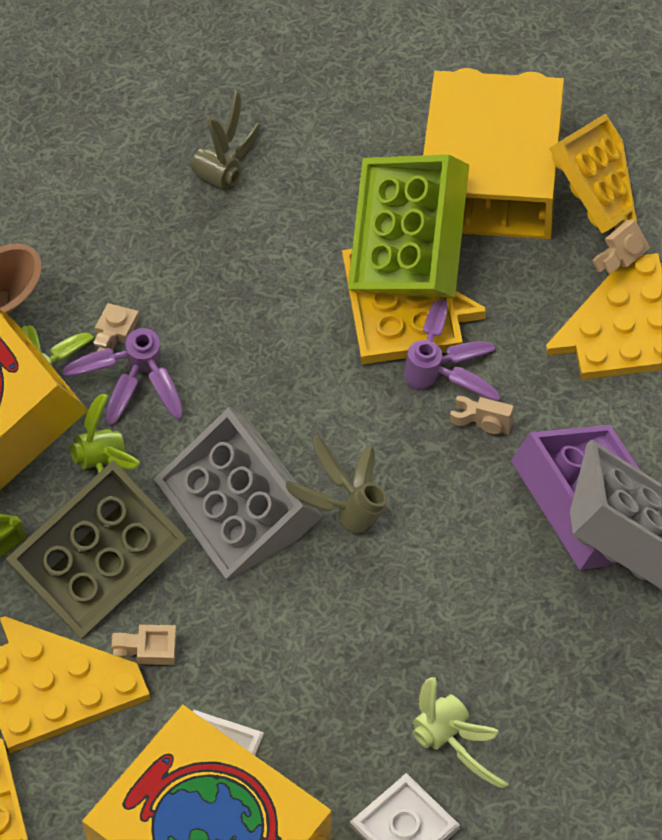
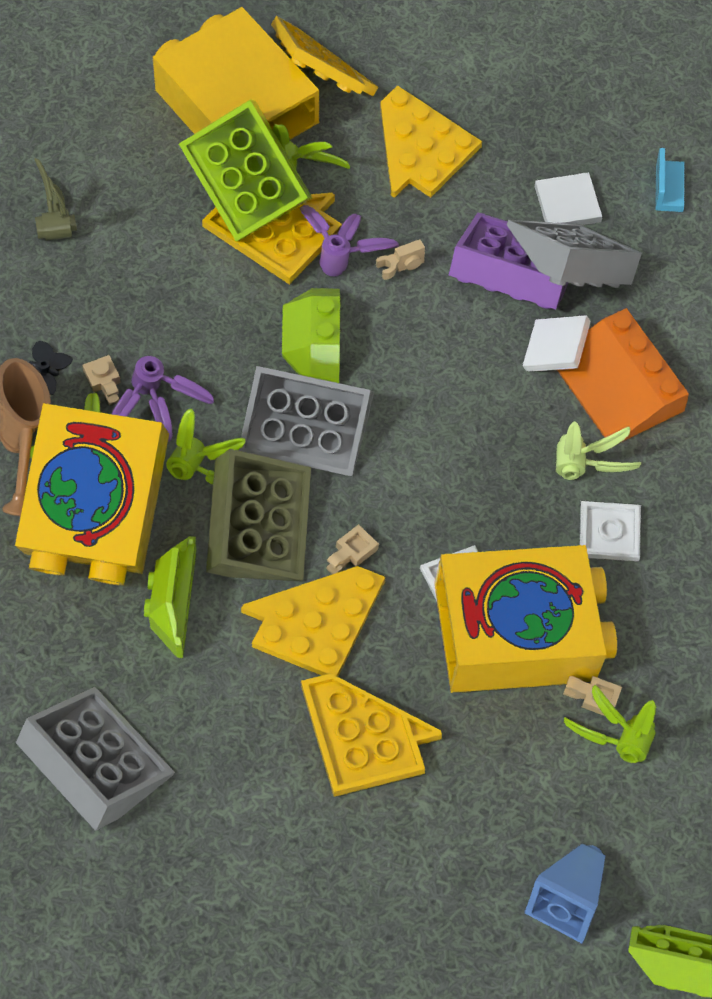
camera: 50 degrees left, 5 degrees up
(78, 285) = (48, 363): none -> black piece
(341, 414) = (313, 334): none -> lime wedge
(366, 499) = (393, 367): olive plant -> none
(482, 244) = (309, 151): none -> lime plant
(543, 602) = (556, 343): none -> white tile
(571, 686) = (624, 378): none -> orange slope
(624, 245) = (380, 91): tan plate -> none

